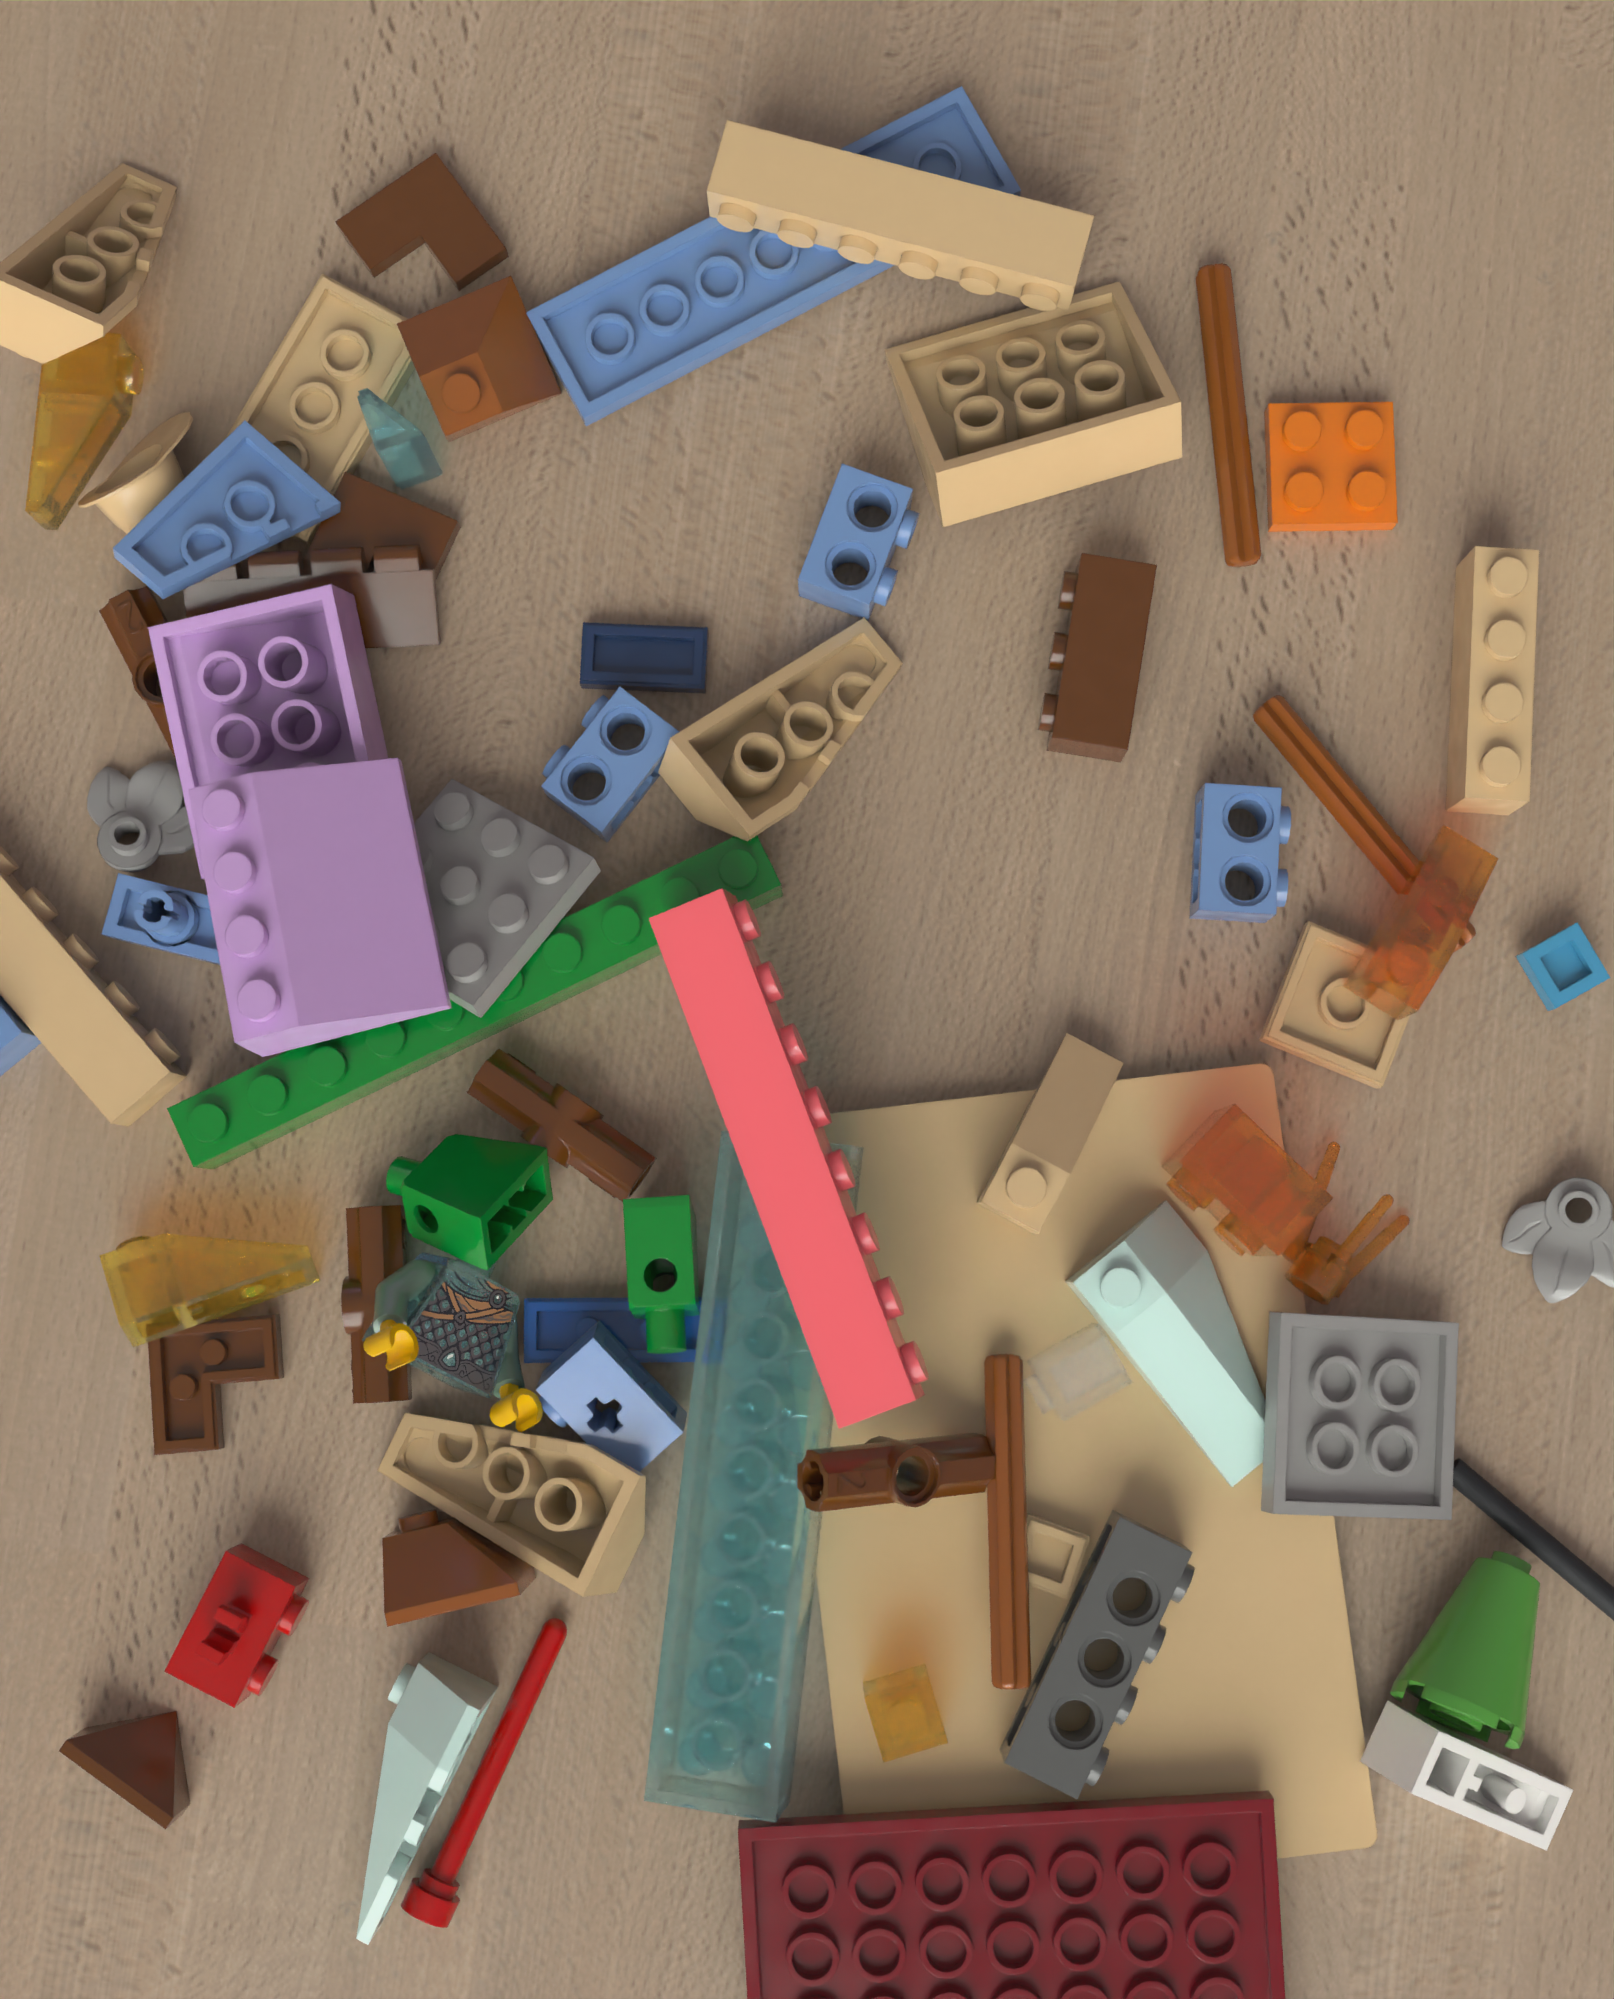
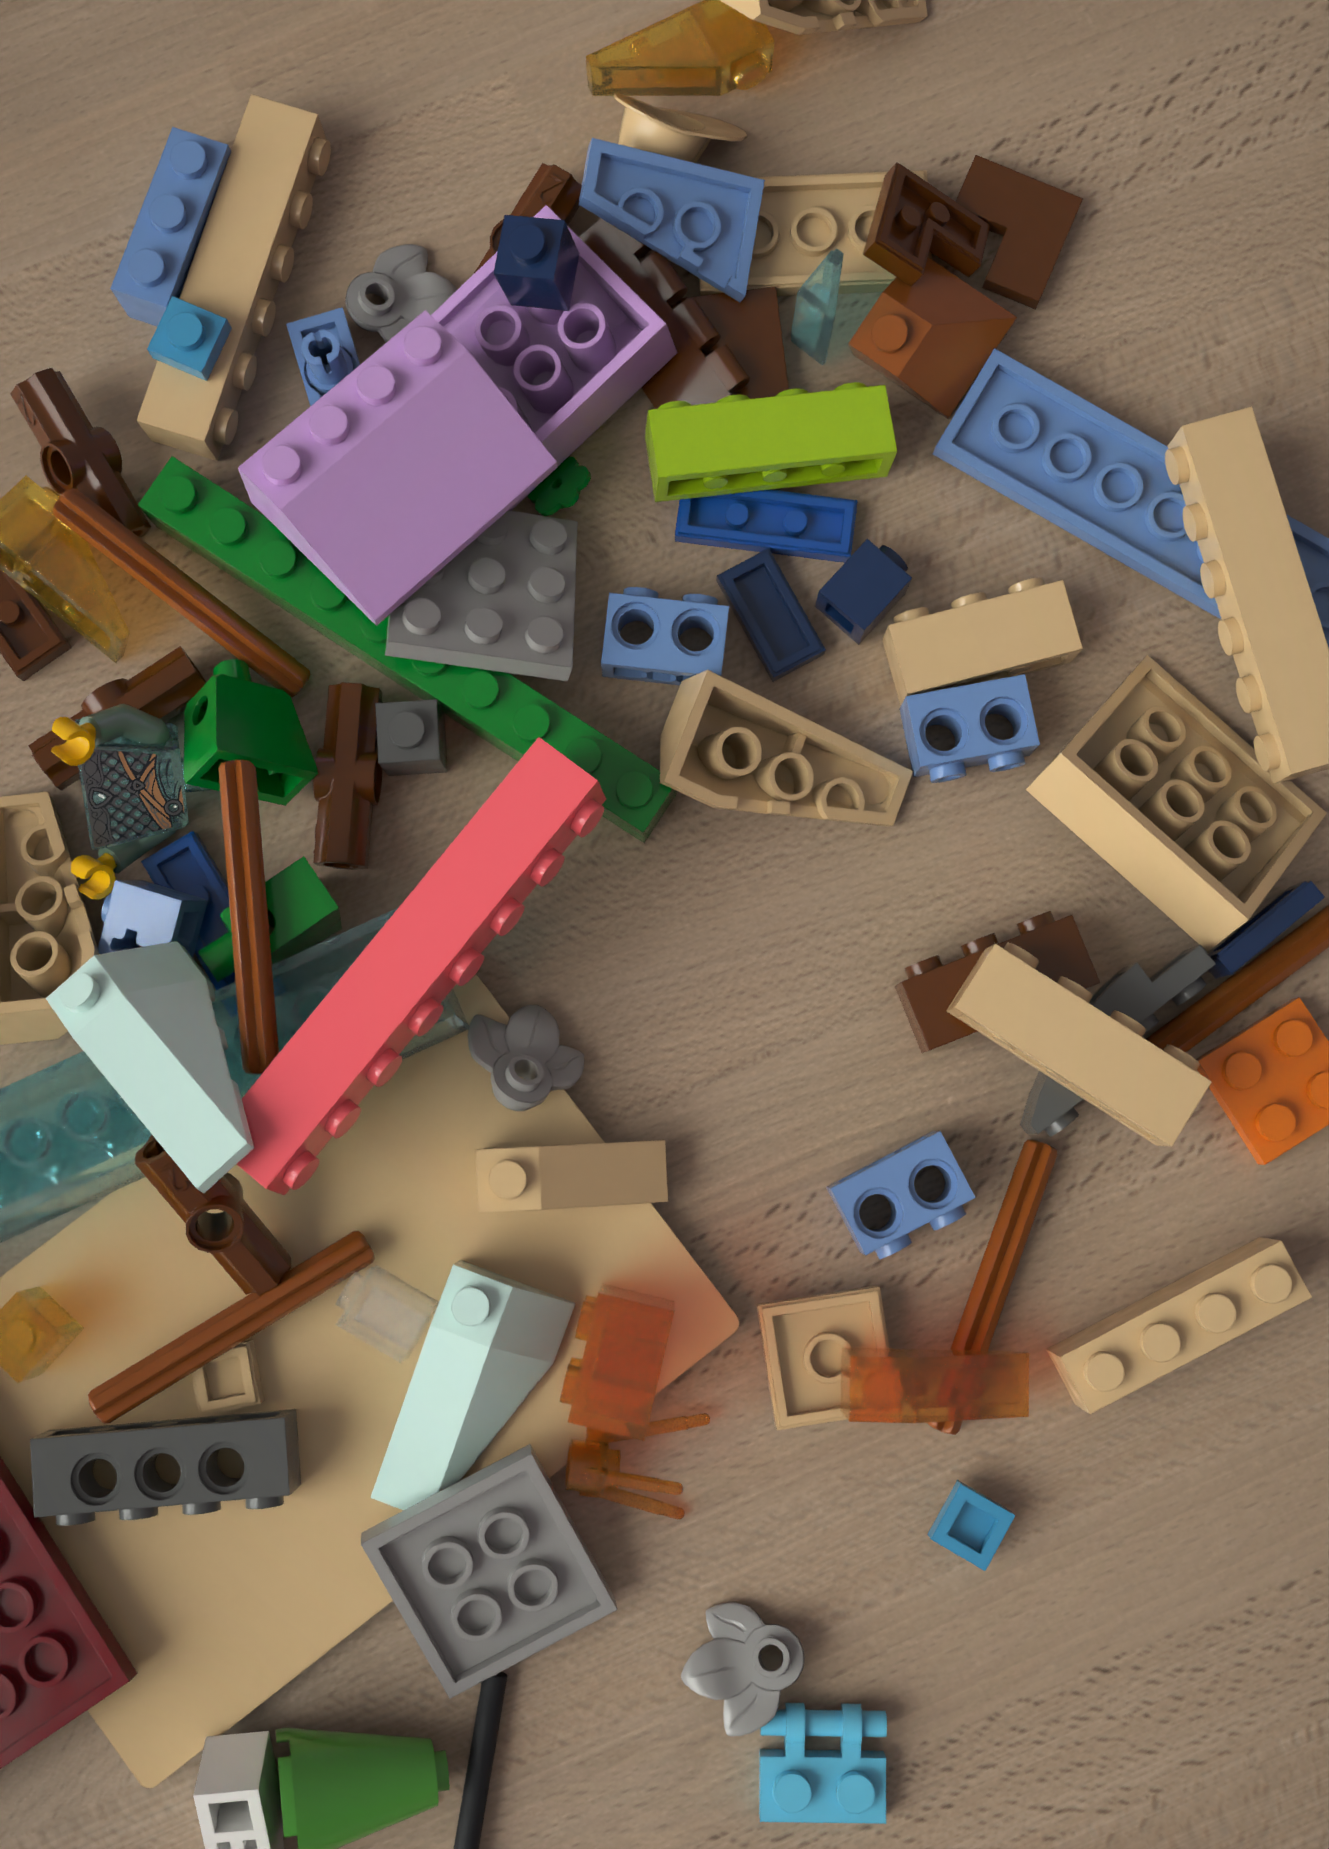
camera: 55 degrees right, 0 degrees up
(65, 1027) = (189, 338): none -> dark azure plate
(112, 1199) = (75, 451): none -> reddish brown piece
(203, 664) = (536, 262): none -> dark blue brick
(296, 1177) = (180, 591): none -> dark orange axle
(371, 305) = (920, 219): none -> reddish brown tile
(417, 771) = (561, 487): none -> green plant
(489, 561) = (769, 441): none -> lime brick
(555, 610) = (773, 520): none -> blue tile
(562, 1044) = (411, 737): none -> dark grey brick
(650, 1279) = (248, 915): none -> dark orange axle
(675, 559) = (864, 590): none -> dark blue brick
(720, 1425) = (157, 1041): none -> light aqua wedge
(784, 485) = (982, 638): none -> tan brick
(917, 1115) = (524, 1049): none -> light grey plate
(1188, 378) = (1264, 928): none -> dark blue tile
(1202, 614) = (1080, 1045): none -> tan brick
(1206, 611) = (1135, 995): none -> dark grey slope

